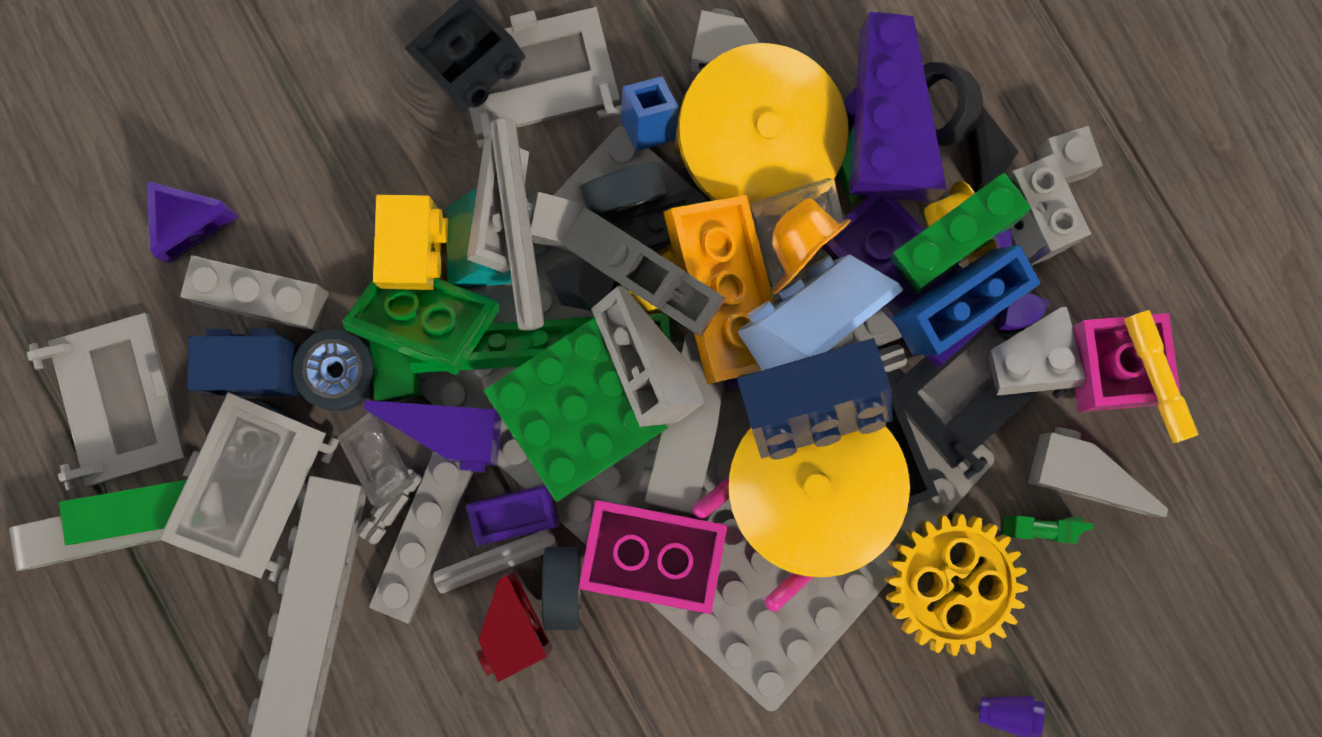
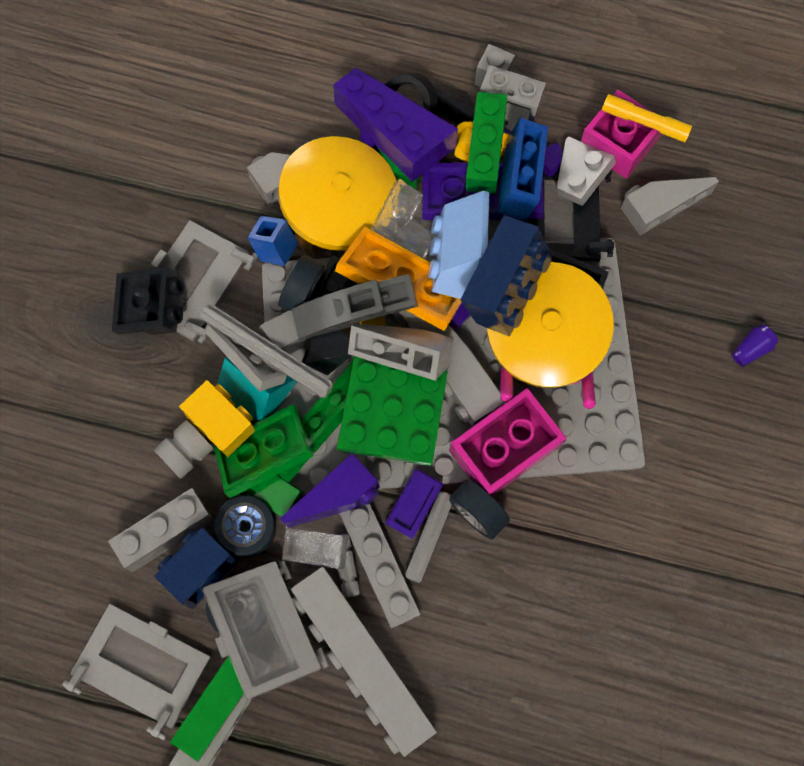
camera: 45 degrees left, 10 degrees down
(182, 220) = (82, 530): dark purple slope -> none
(344, 236) = (183, 449): none -> light grey wheel
(511, 631) = (477, 556): dark red slope -> none
(800, 236) = (414, 217): light orange piece -> none
(979, 613) = (687, 314): yellow gear -> none
(1060, 531) = (675, 243): green piece -> none

